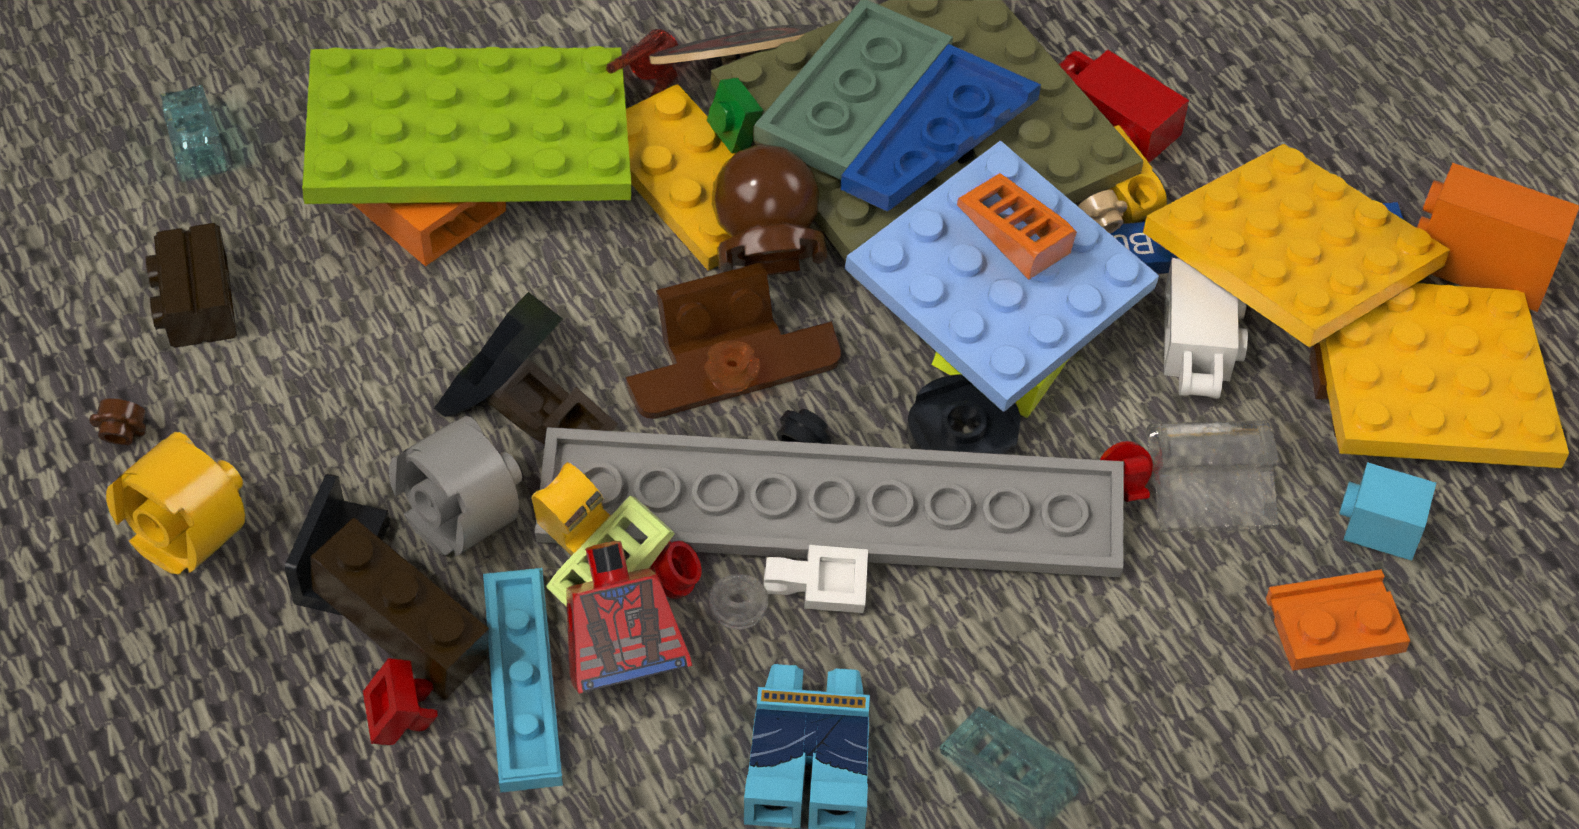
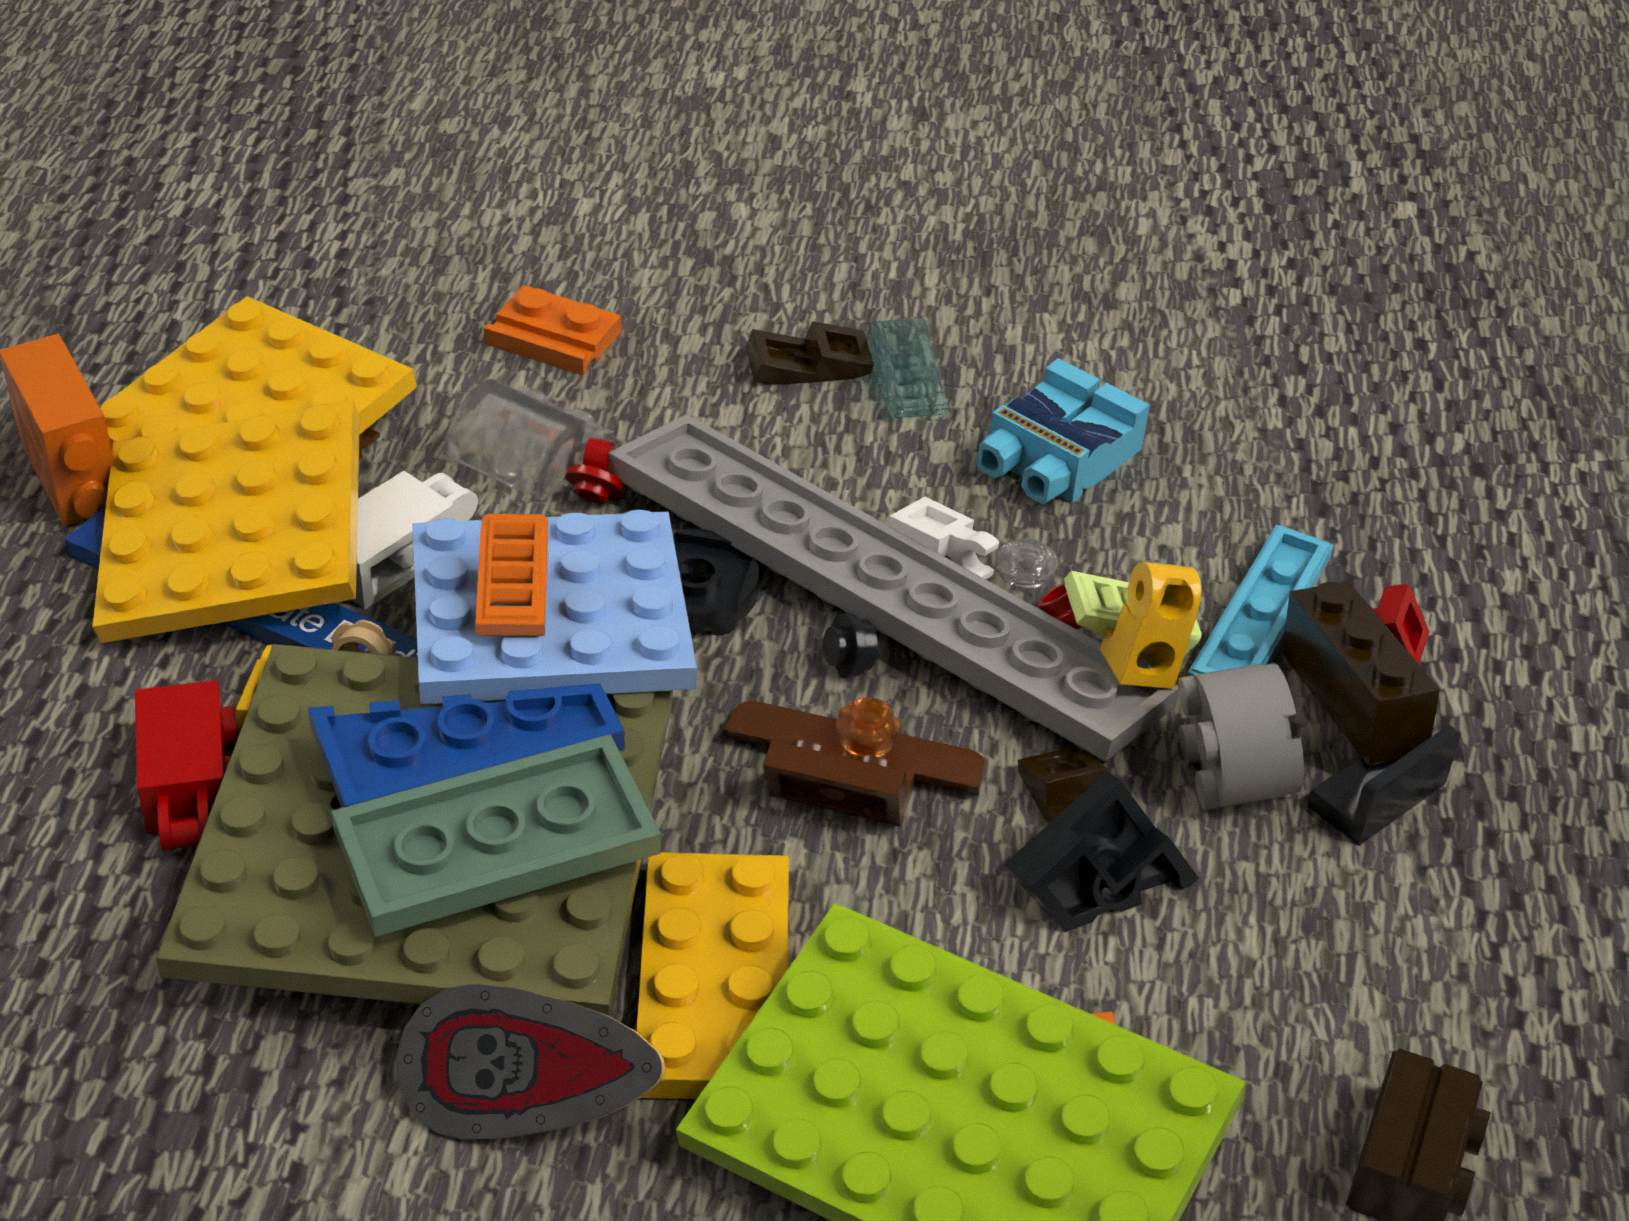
camera: 145 degrees left, 10 degrees down
(119, 421) = (1560, 1043): reddish brown plate -> none
(178, 504) = (1546, 863): yellow brick -> none
(620, 624) = (1147, 541): torso -> none
(639, 61) = (628, 1135): clear red plant -> none
(734, 114) = (633, 941): green plate -> none
(766, 207) = (722, 787): reddish brown tile -> none
(1109, 728) = (823, 356): none -> dark brown slope
(1387, 510) = (435, 335): medium azure brick -> none

